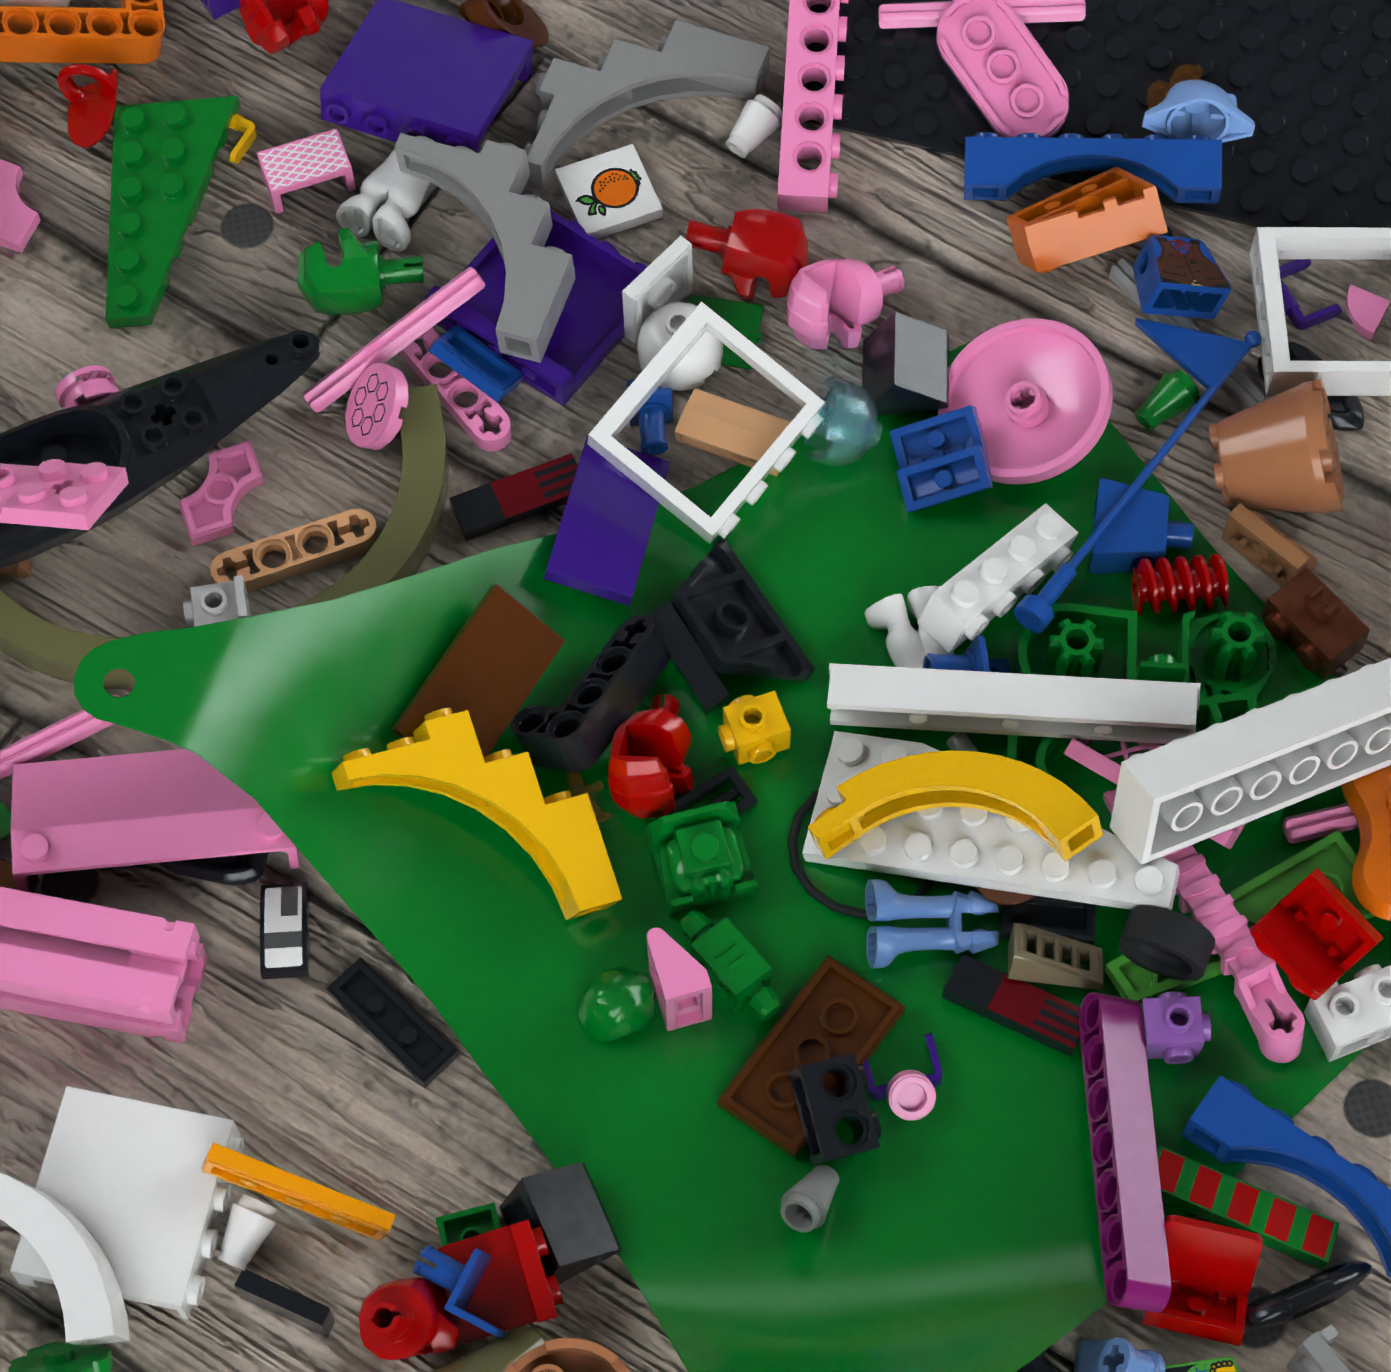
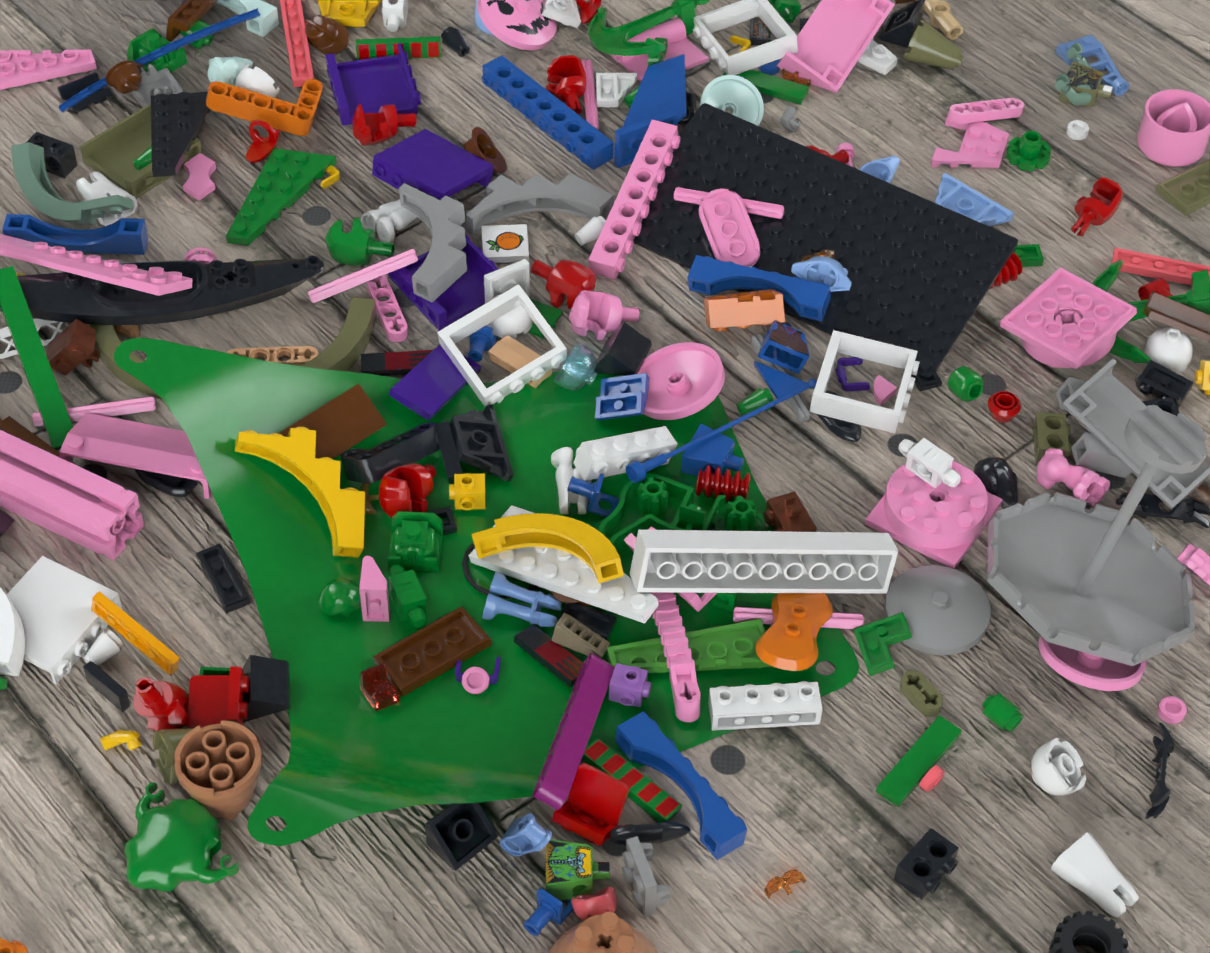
camera: 15 degrees right, 15 degrees down
(212, 507) = (240, 330): bright pink tile -> none
(284, 931) = (186, 521): slope -> none
(304, 164) = (354, 191): bright pink panel -> none
(375, 406) = (338, 304): bright pink tile -> none
(459, 1280) = (196, 692): blue bracket -> none
(476, 363) = (401, 298): blue tile -> none
(753, 1161) = (378, 688): none -> clear red bracket
(808, 1201) = (398, 710): light grey cone -> none
(821, 1111) = (426, 671): black brick -> none
(1012, 703) = (596, 505): white tile -> none
(1166, 943) = (638, 638): black tyre -> none
(1265, 545) = (778, 477): medium nougat bracket -> none
(1281, 454) = (804, 435): nougat cone -> none
(1314, 935) = (723, 658): red bracket -> none

